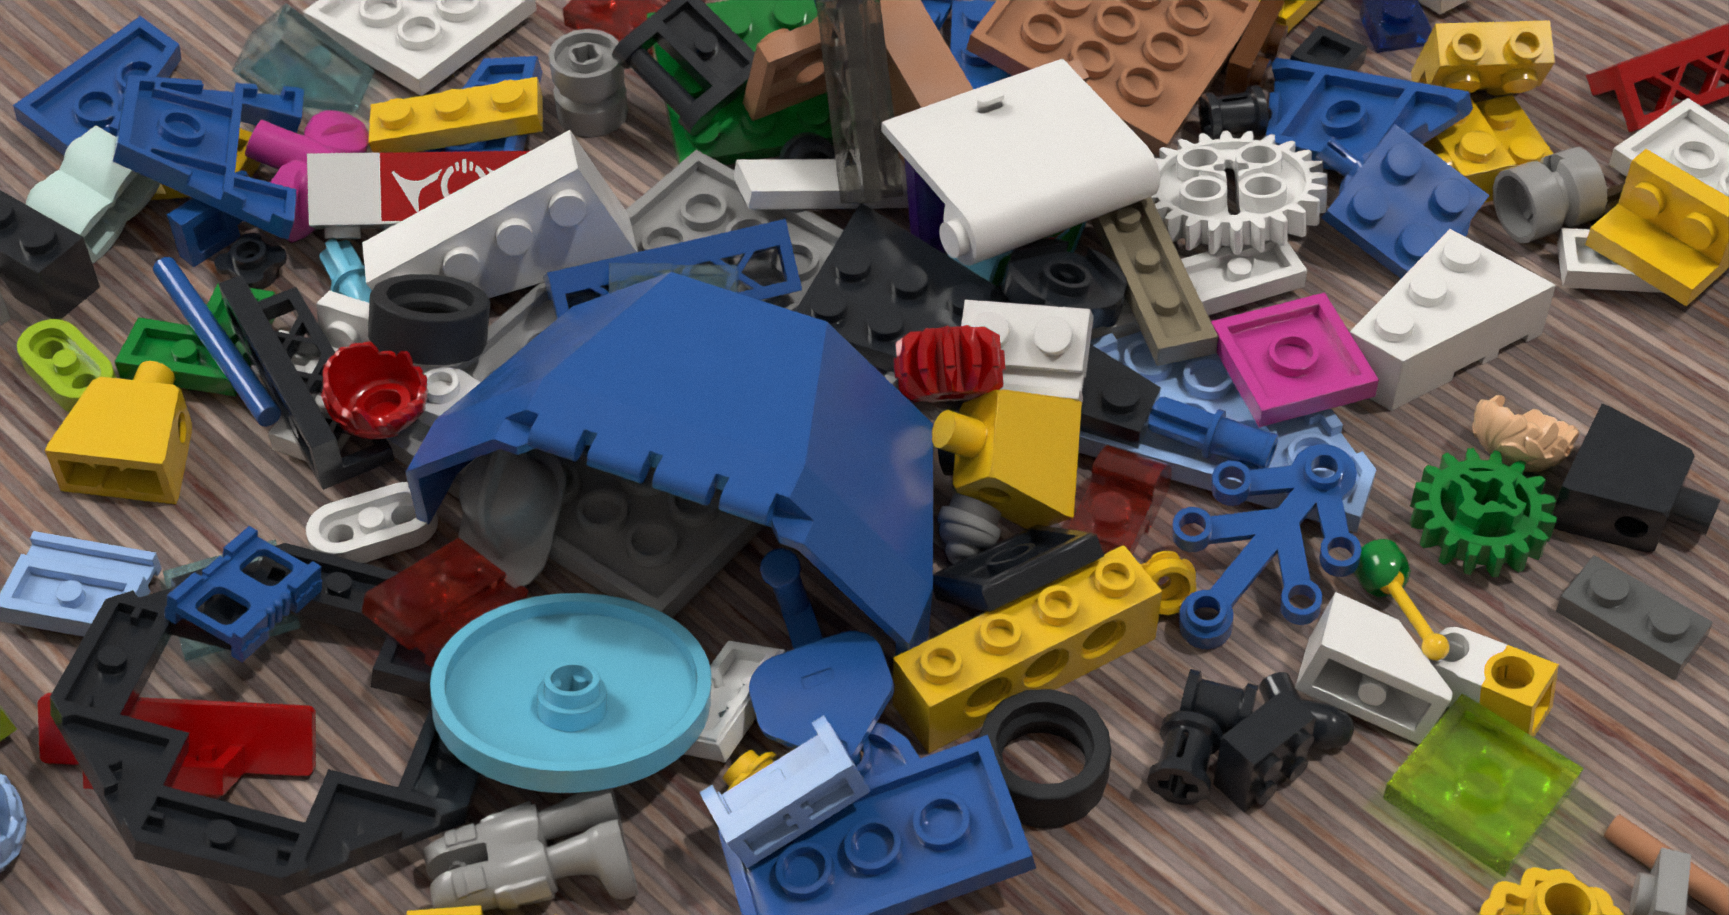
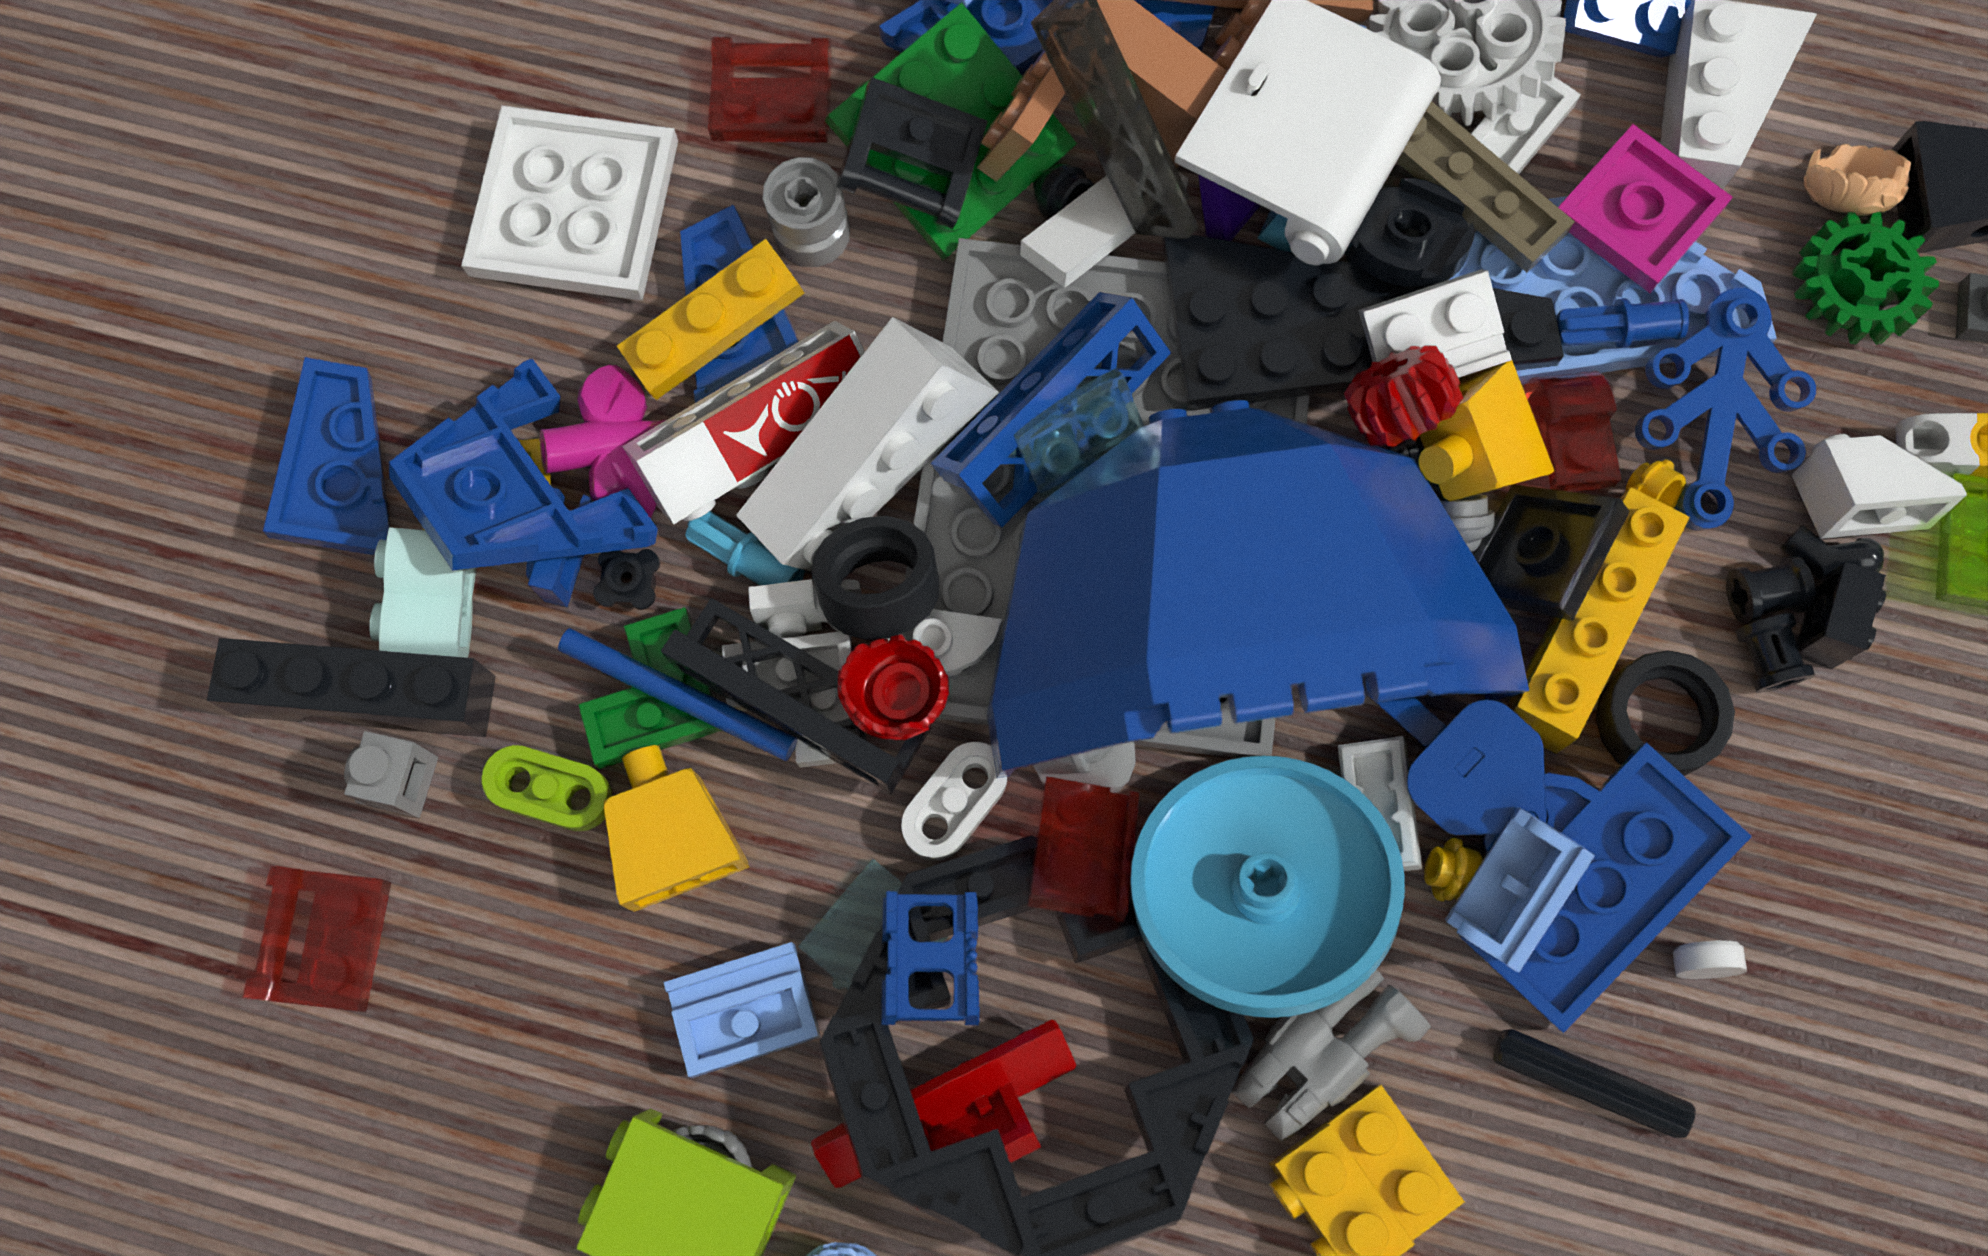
camera: 25 degrees left, 25 degrees up
(300, 55) = (498, 328): clear light blue slope -> none
(1384, 574) = (1832, 386): hinge -> none

